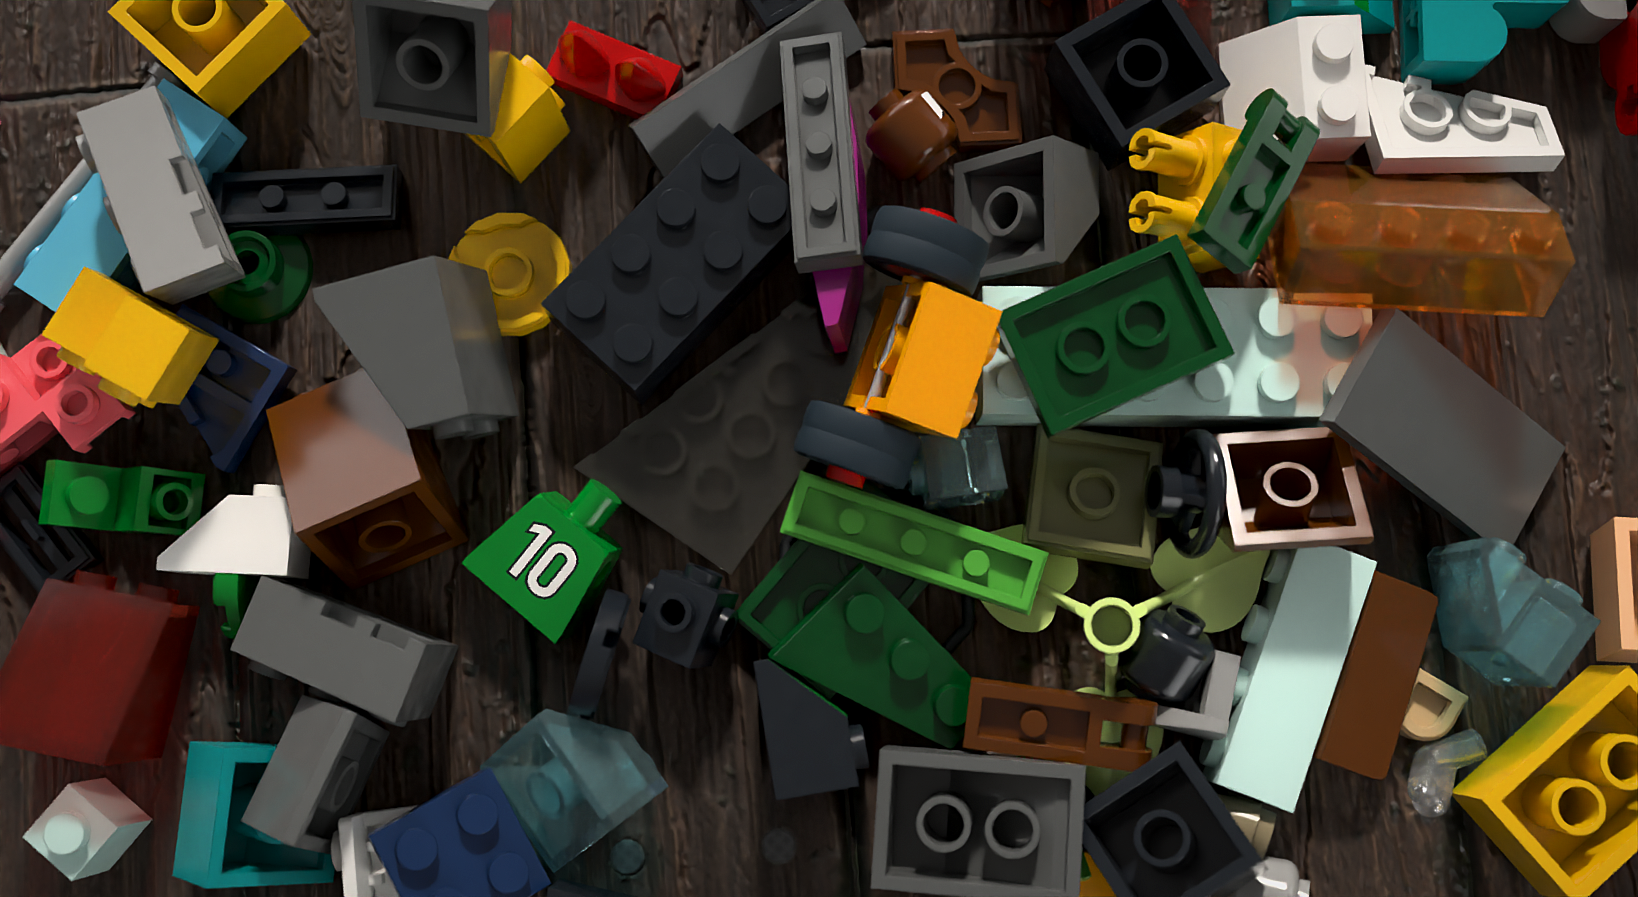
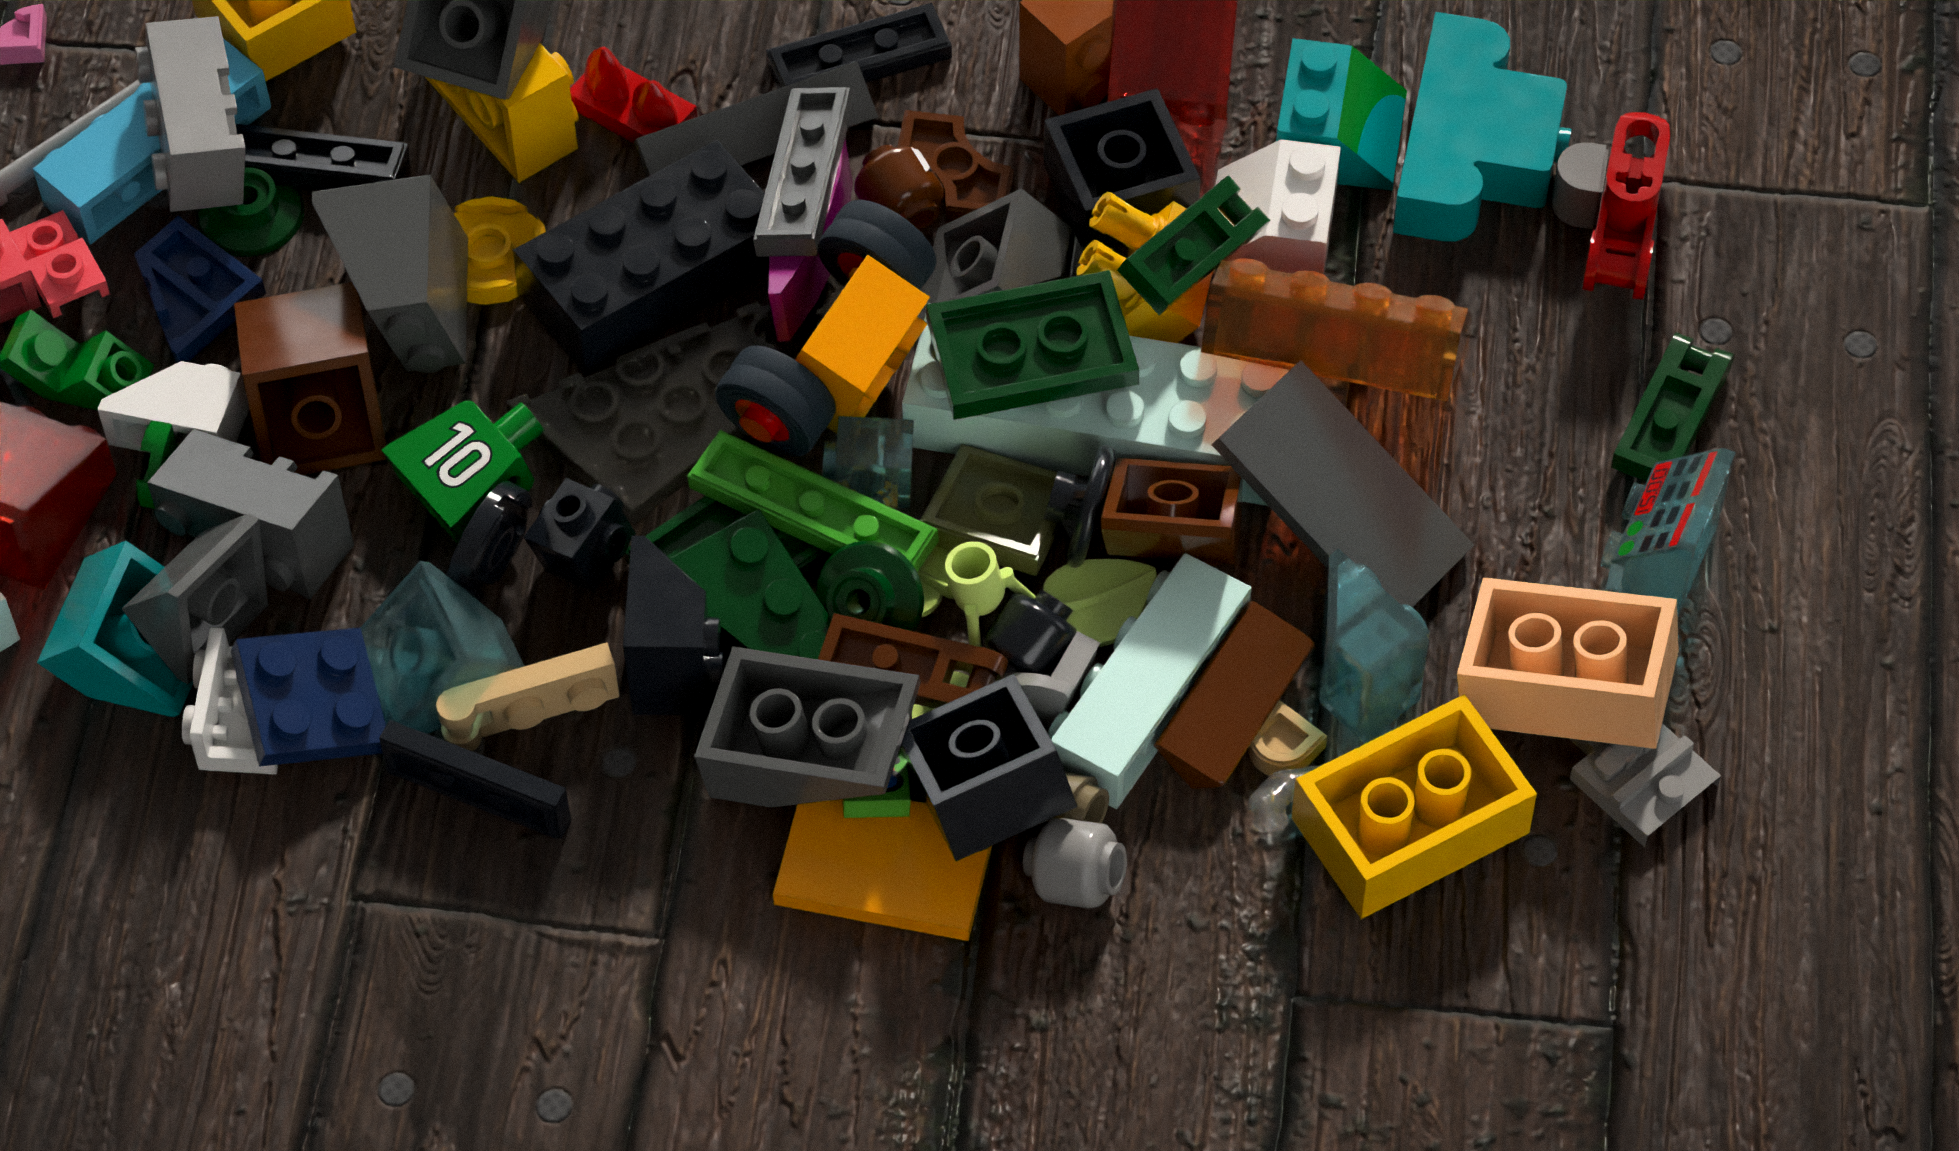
camera: 10 degrees right, 25 degrees down
(128, 340) = (137, 215): yellow brick -> none
(675, 814) = (527, 695): none -> tan plate
(992, 632) = (883, 574): none -> dark green piece
(1450, 133) = (1418, 268): white wing -> none

